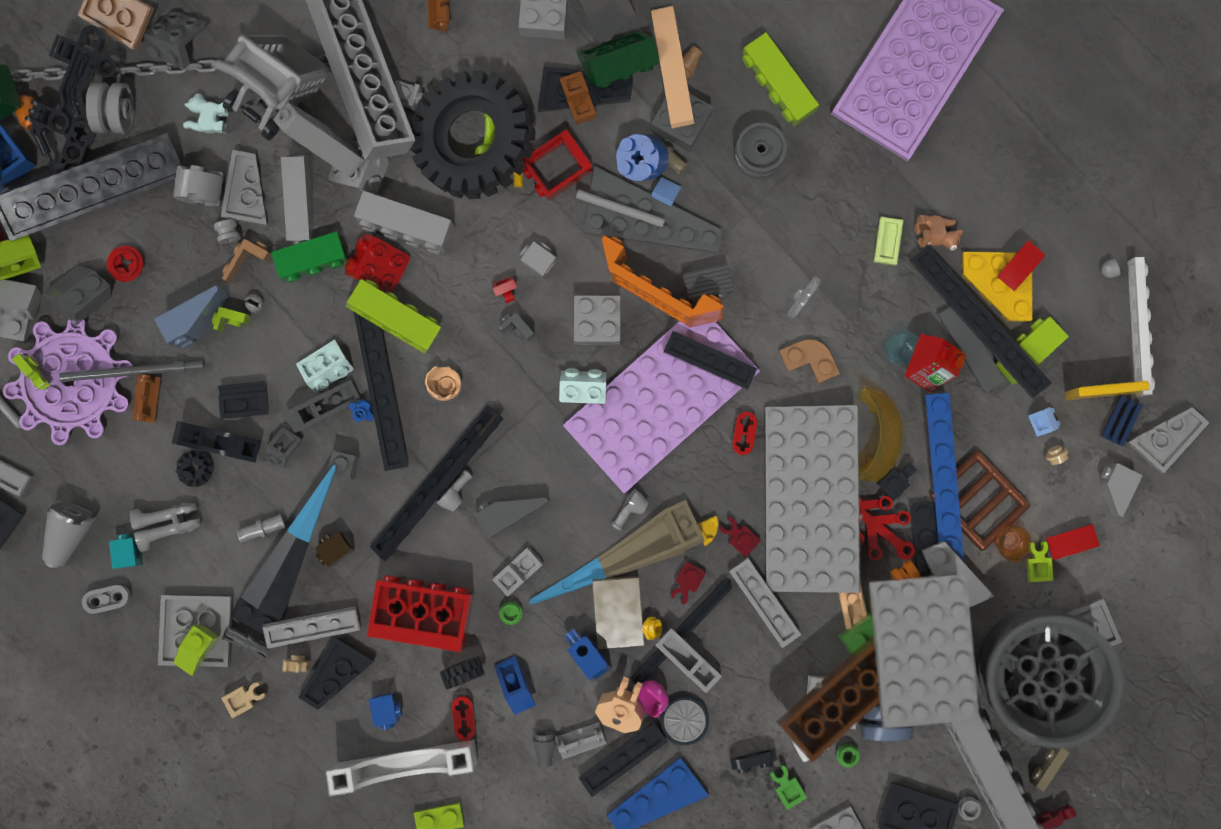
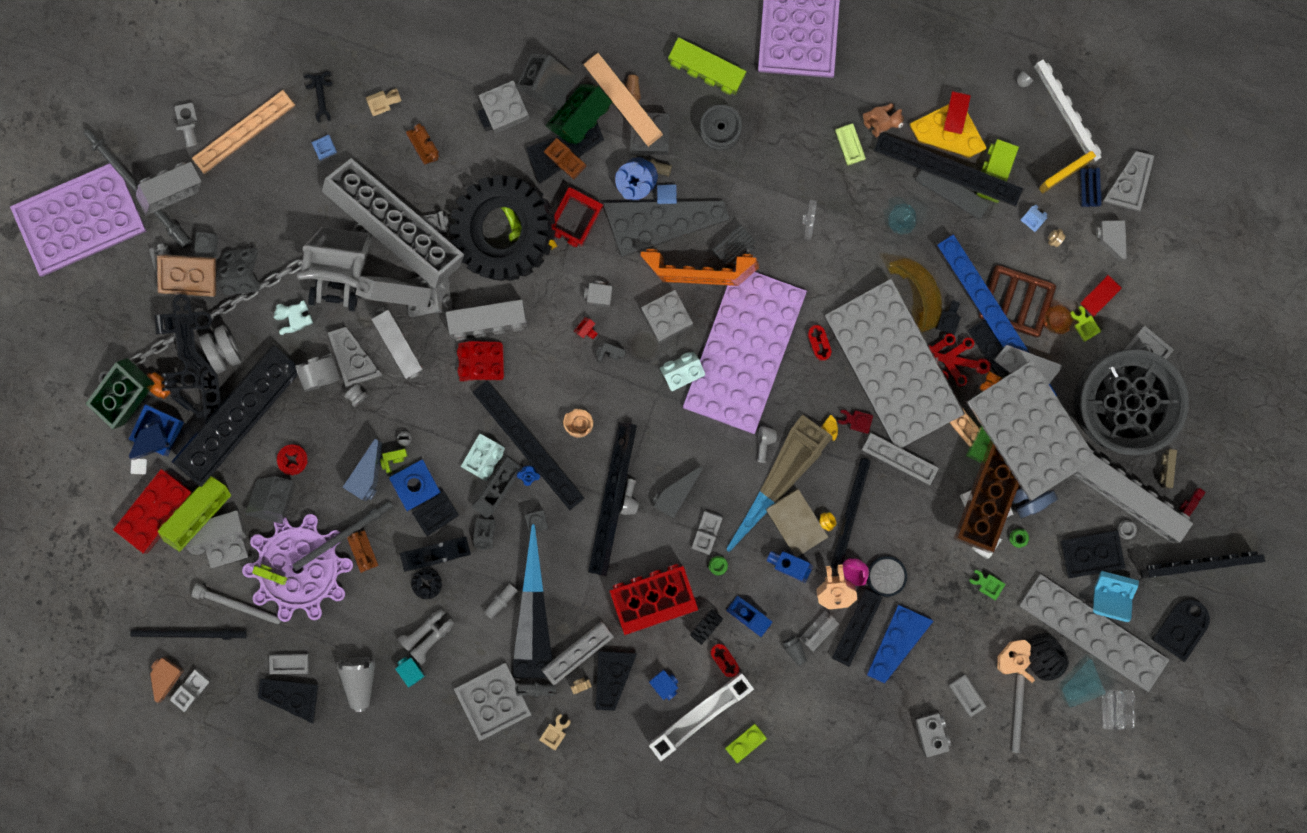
camera: 30 degrees left, 0 degrees up
(107, 599) = (414, 713): light grey plate -> none
(195, 648) = (501, 714): lime slope -> none
(241, 252) = (385, 397): medium nougat bracket -> none
(251, 367) = (428, 486): none -> blue piece
(310, 257) = (429, 382): green brick -> none
(333, 549) = (562, 588): dark brown brick -> none
(393, 316) = (515, 392): lime brick -> none
(515, 13) = (484, 120): none -> black tile
(620, 208) = (640, 224): light grey bar -> none
(688, 660) = (866, 530): light grey slope -> none
(689, 579) = (835, 471): dark red plate -> none
(710, 360) = (766, 302): black plate -> none
(745, 762) = (958, 573): black plate -> none
(810, 352) = (838, 257): medium nougat plate -> none
(934, 363) = (931, 218): red slope -> none

